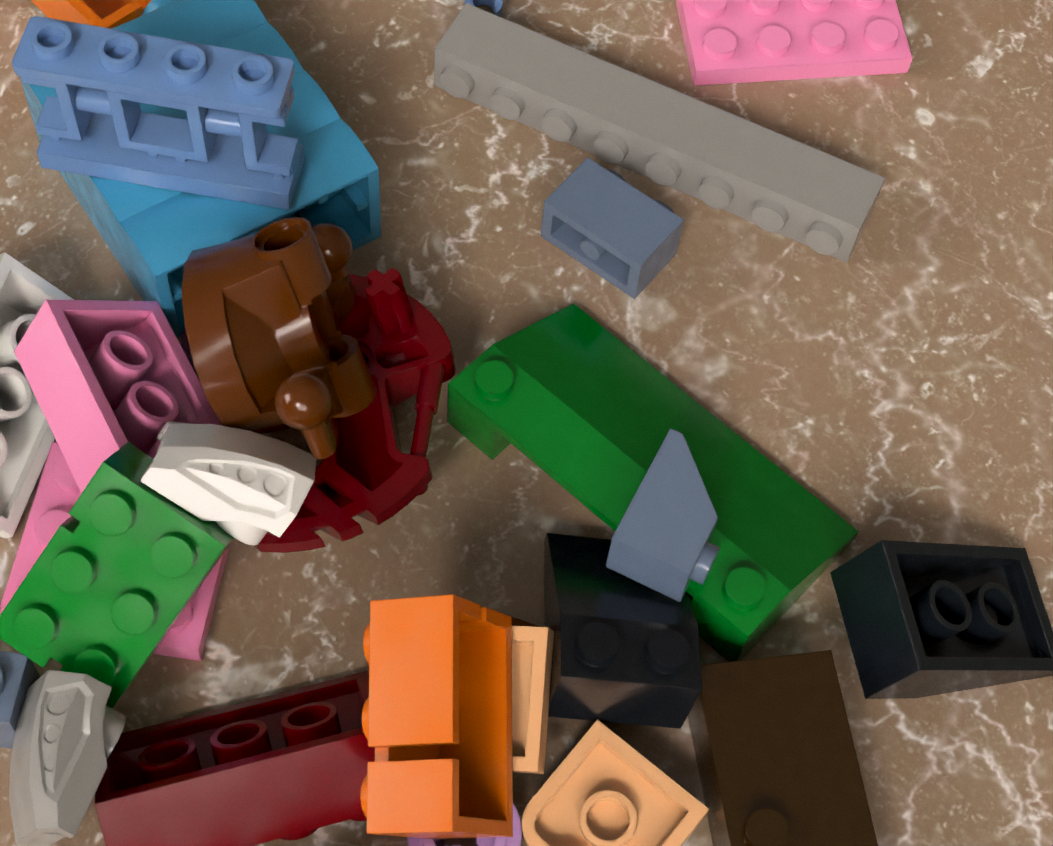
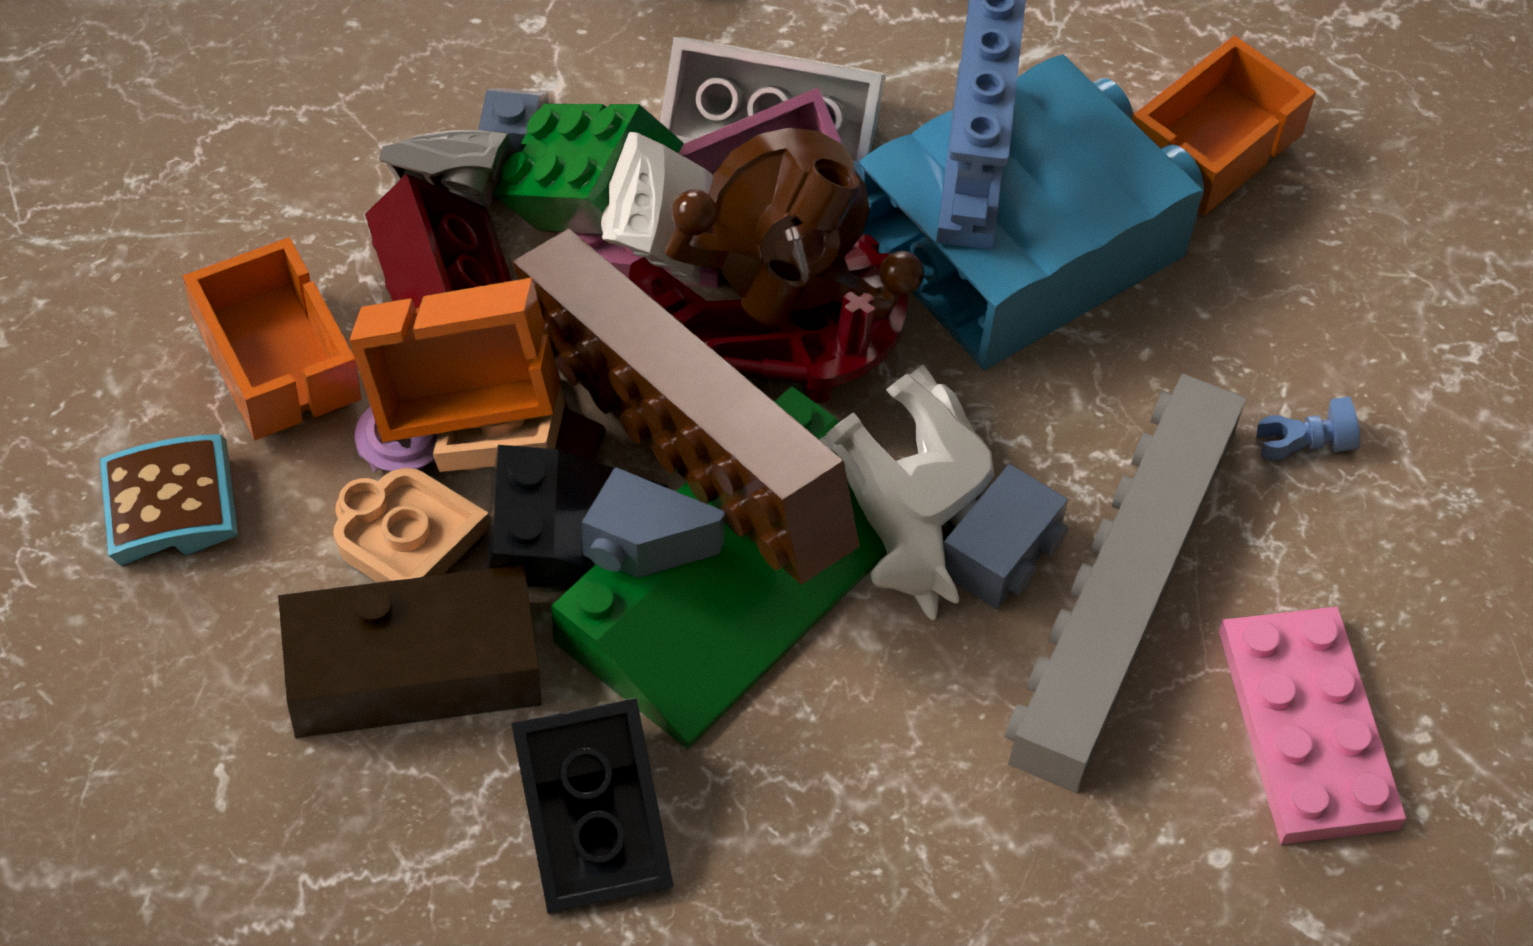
camera: 90 degrees right, 5 degrees down
(505, 471) = (693, 409): none -> reddish brown brick
(571, 285) = (918, 493): none -> white animal

